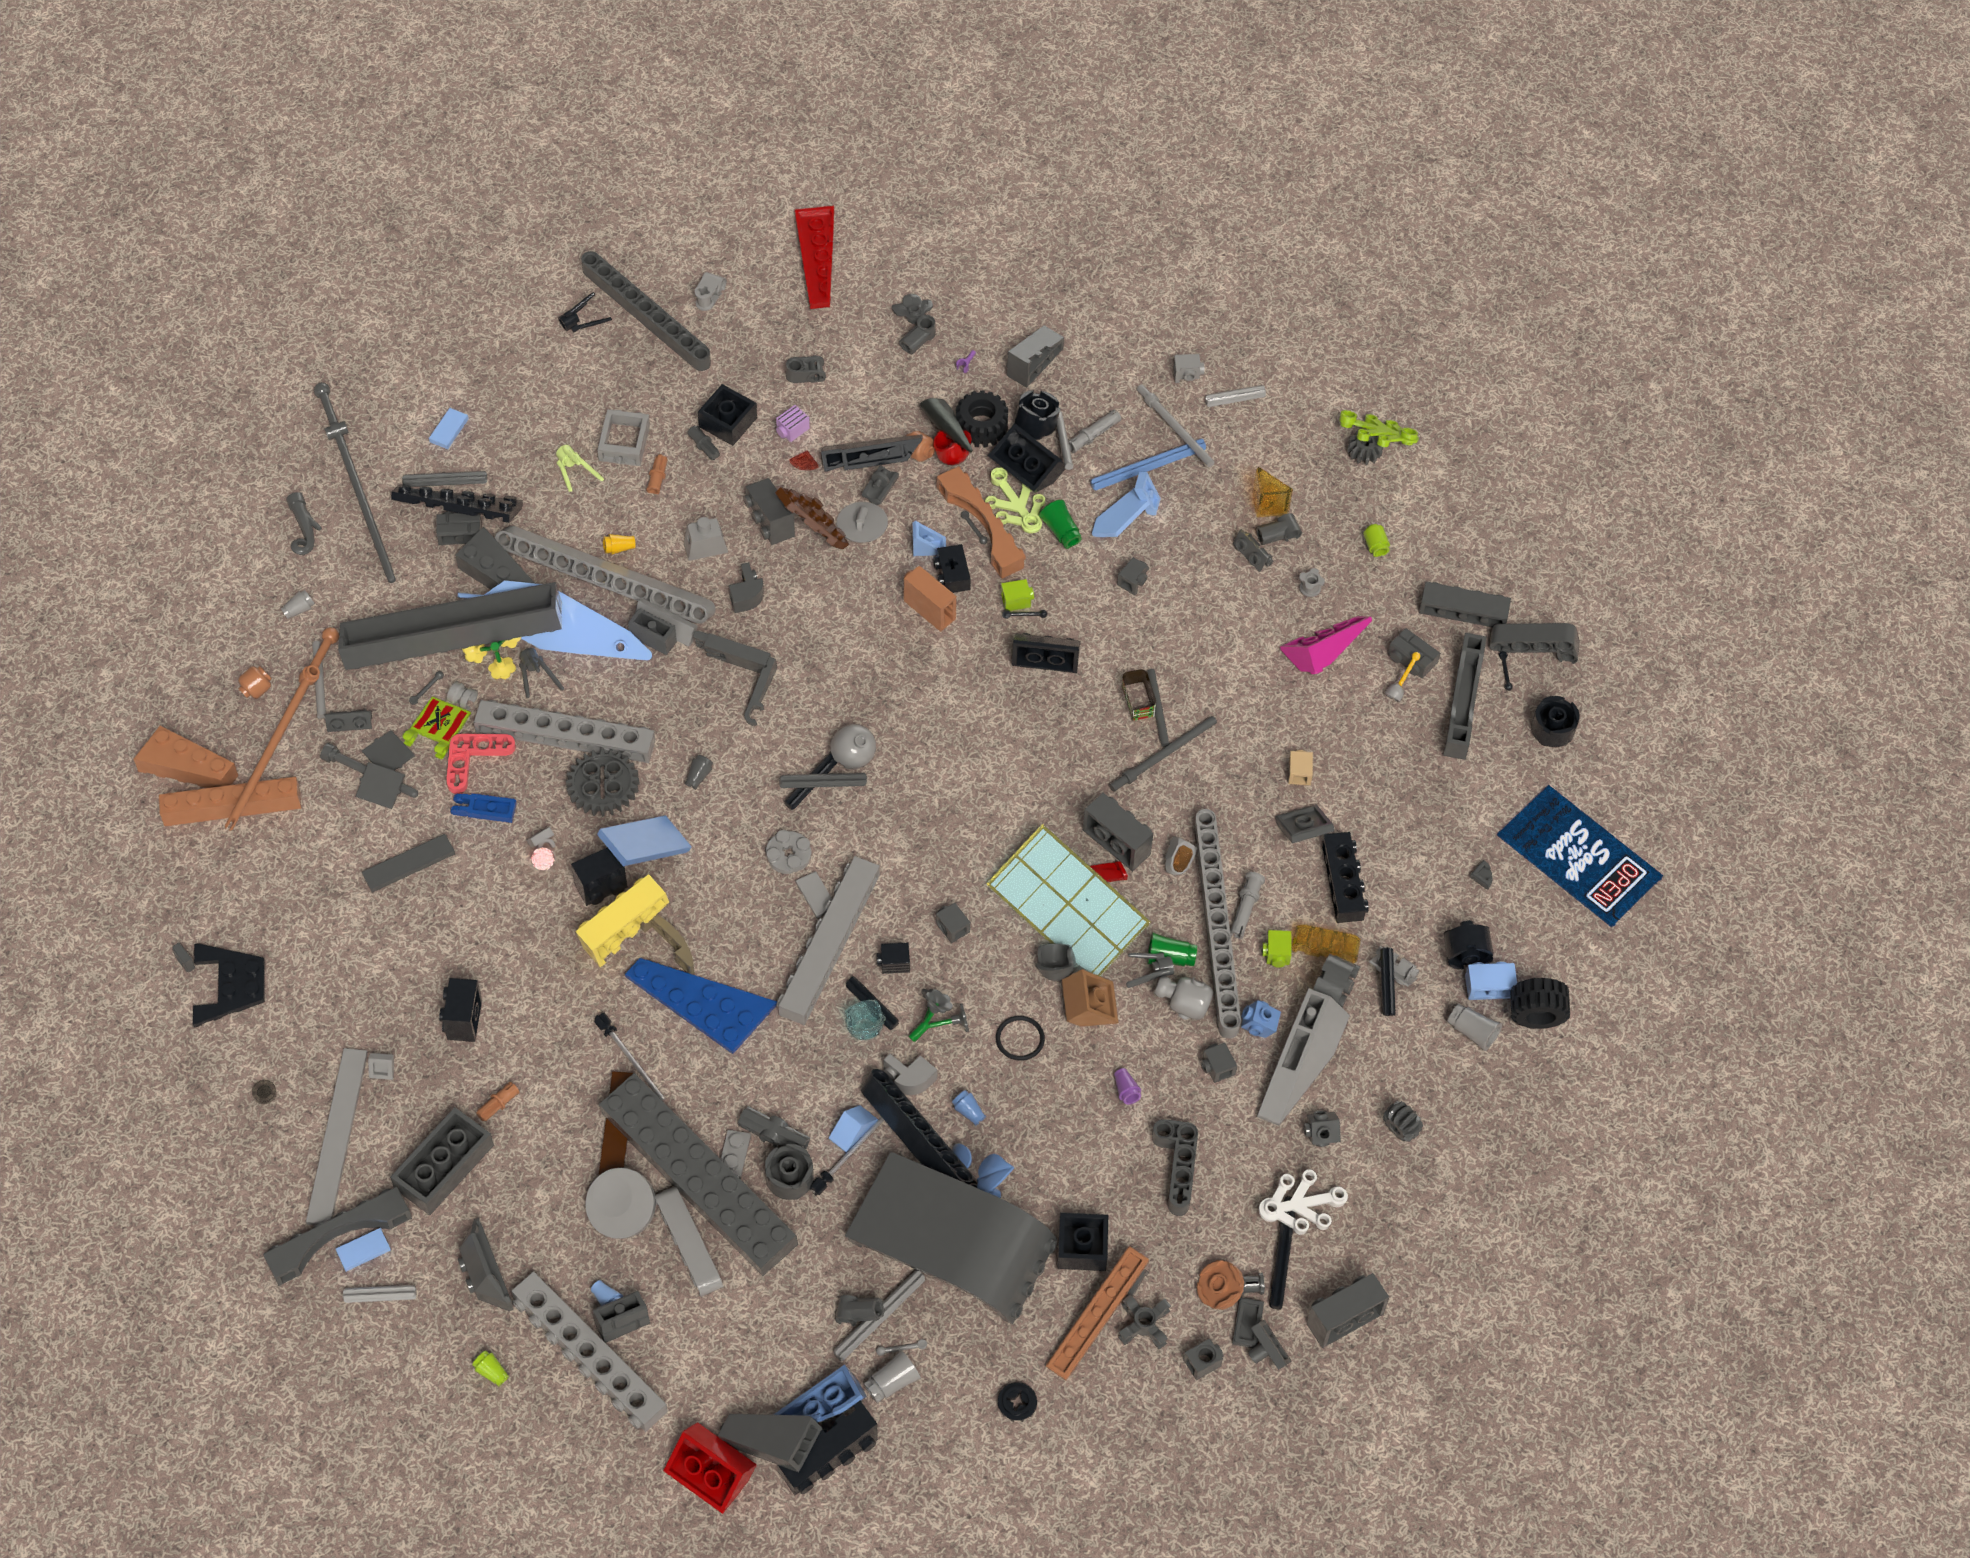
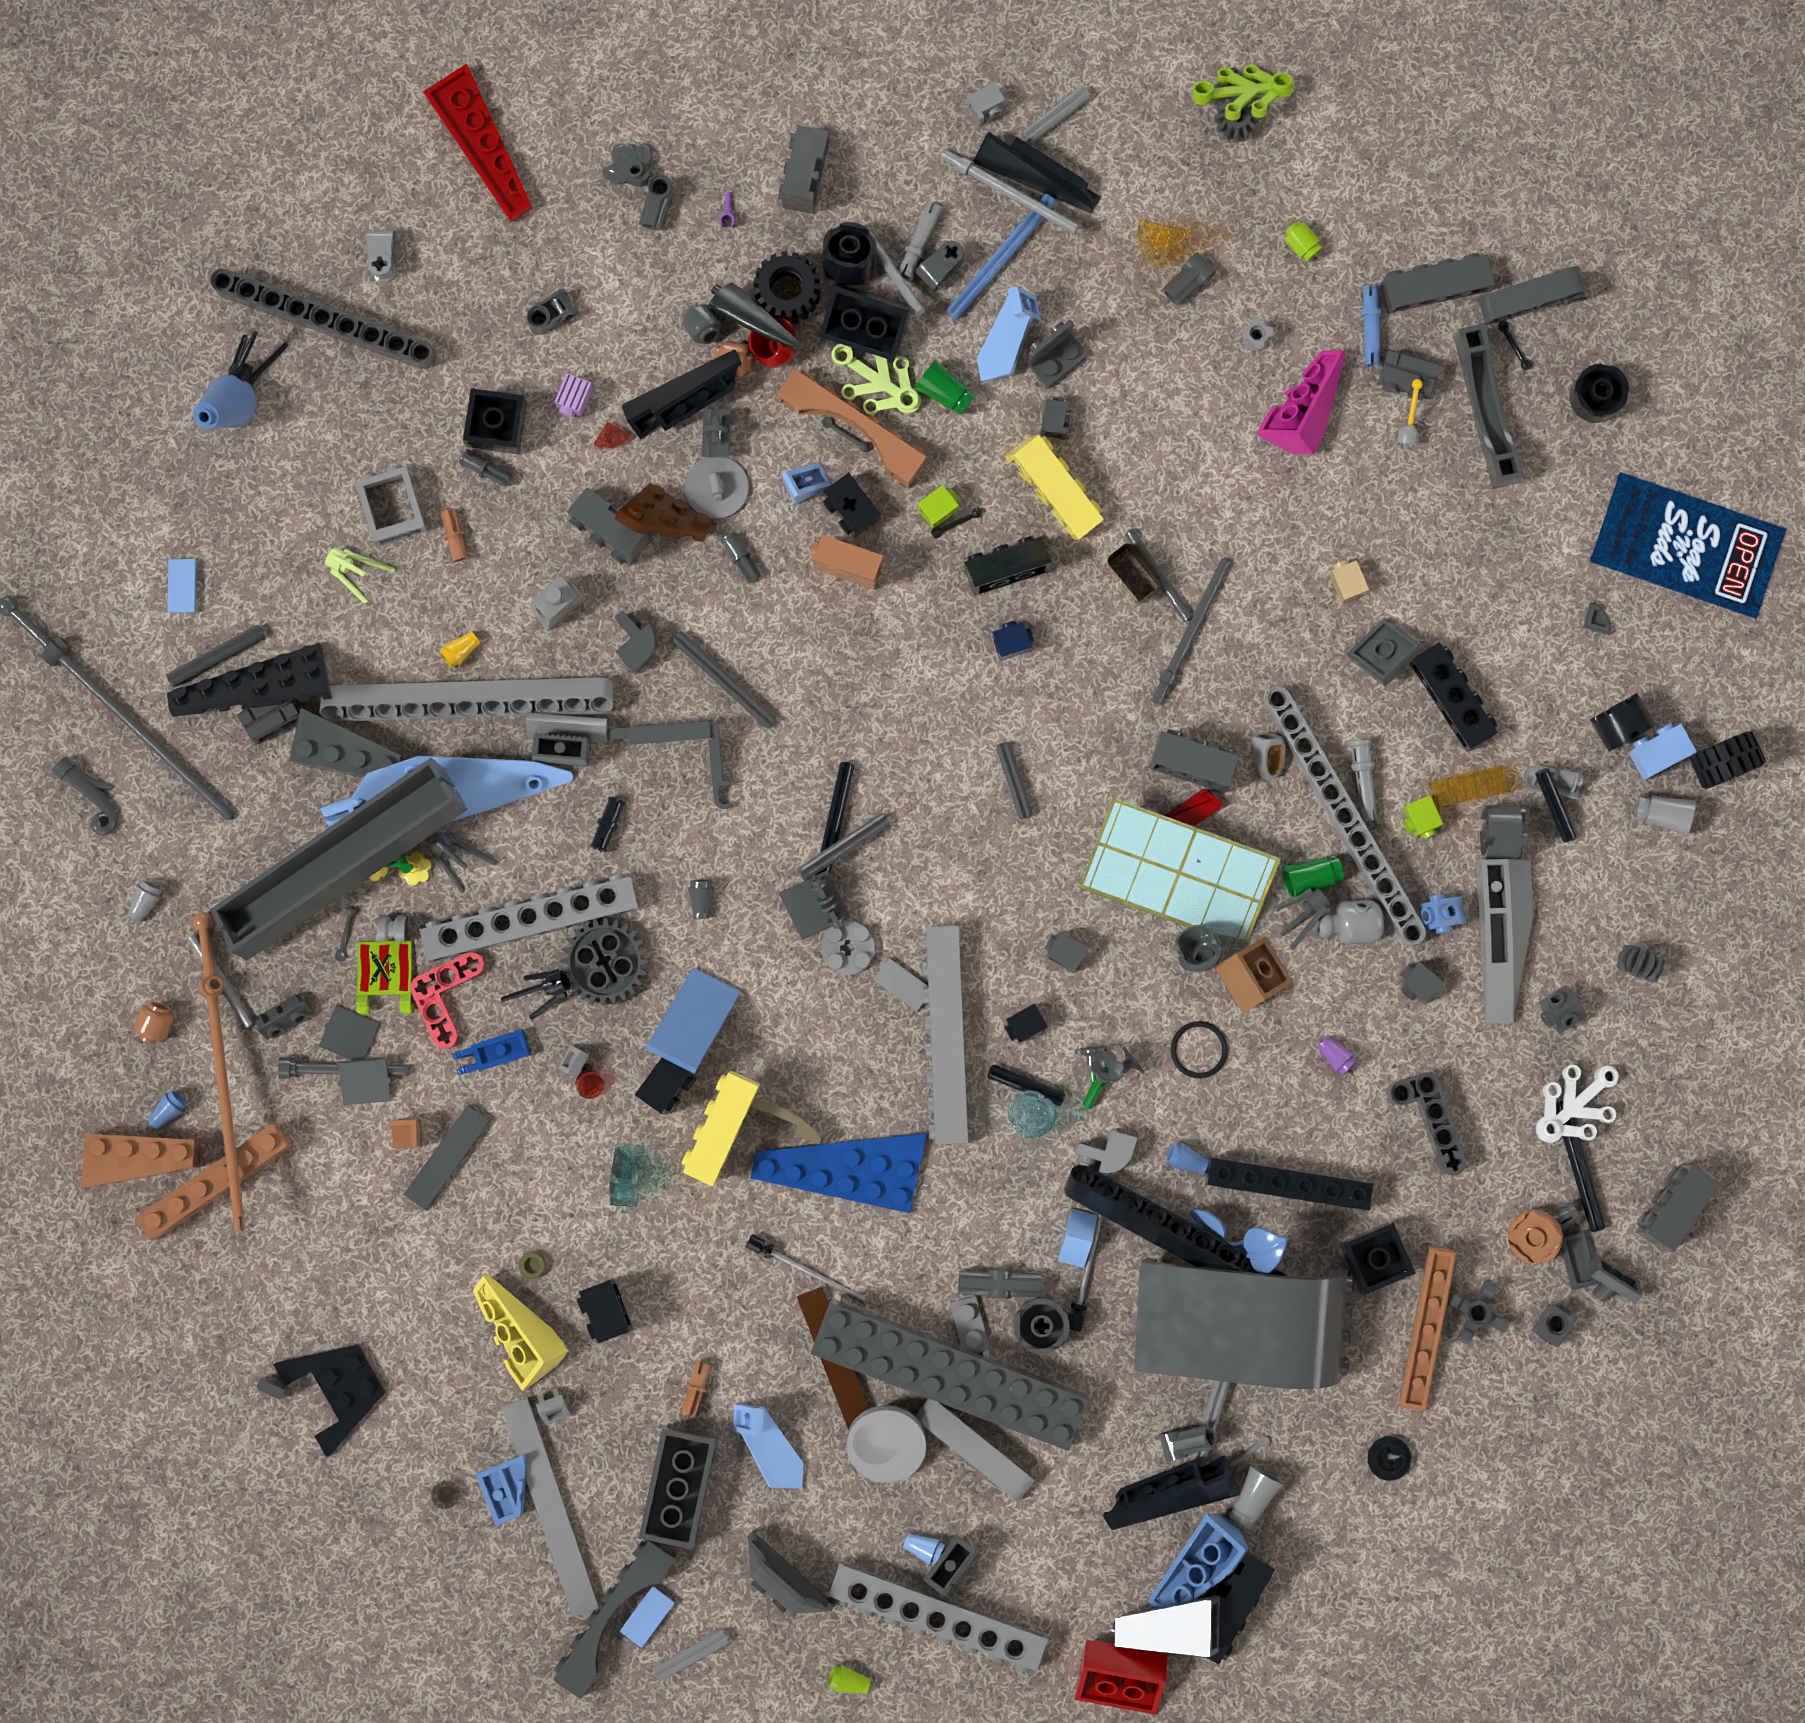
camera: 25 degrees left, 25 degrees up
(228, 742) = (169, 1107): none -> medium blue cone
(310, 1105) = (504, 1489): none -> medium blue wing
(389, 830) = (406, 1133): none -> nougat panel
(391, 1005) = (528, 1340): none -> light yellow wedge
(426, 963) = (532, 1265): none -> olive tile
(529, 1167) = (768, 1446): none -> light blue piece
(531, 930) = (625, 1175): none -> clear light blue slope
(546, 328) = (226, 404): none -> medium blue cone
(555, 776) = (555, 984): none -> black plant
(658, 696) = (607, 824): none -> black pin
(779, 809) = (815, 905): none -> dark grey hinge
(798, 642) = (724, 679): none -> dark grey axle
(827, 1344) = (1173, 1492): none -> black wedge
(853, 746) = (855, 788): light grey cylinder -> none
(854, 570) = (741, 557): none -> dark grey axle
(909, 417) = (702, 324): none -> dark grey head
(976, 795) = (1014, 780): none -> dark grey axle
(1024, 701) = (1012, 640): none -> dark blue brick
(1040, 1158) = (1289, 1184): none -> black brick
(1100, 451) = (937, 266): none -> dark grey piece
(1110, 613) = (1056, 486): none -> light yellow wedge
(1154, 533) = (1055, 354): none -> dark grey bracket
(1201, 421) = (1035, 170): none -> black wedge
(1250, 549) = (1180, 326): dark grey hinge -> none
(1405, 606) = (1371, 325): none -> medium blue pin

